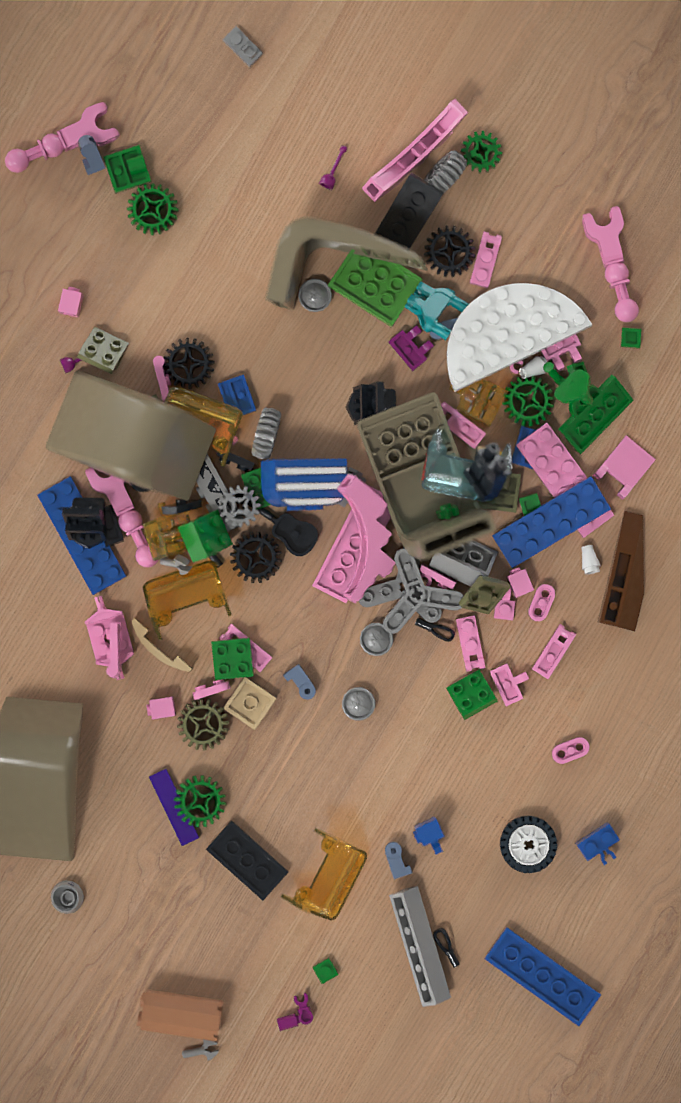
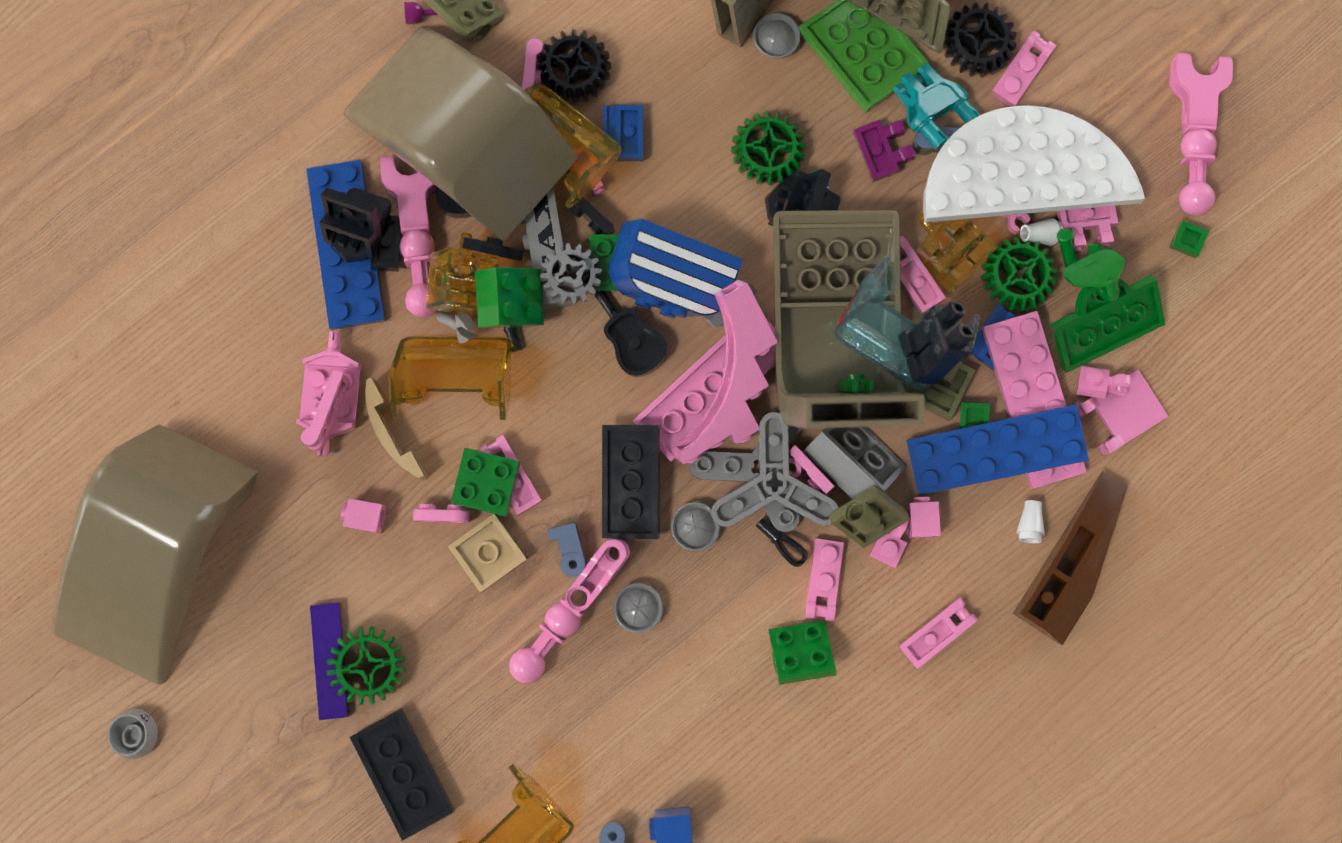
camera: 20 degrees right, 5 degrees down
(194, 739) = (401, 567): olive gear -> none
(240, 550) = (560, 363): black gear -> none
(266, 433) = (644, 189): light grey gear -> none
(314, 726) = (564, 617): none -> bright pink piece
(325, 625) = (631, 481): none -> black plate
(345, 370) = (777, 145): none -> green gear
(507, 684) = (857, 656): bright pink plate -> none
(541, 602) = (943, 558): bright pink plate -> none
(569, 748) = (913, 782): bright pink plate -> none
(602, 454) = (1097, 383): none -> bright pink plate

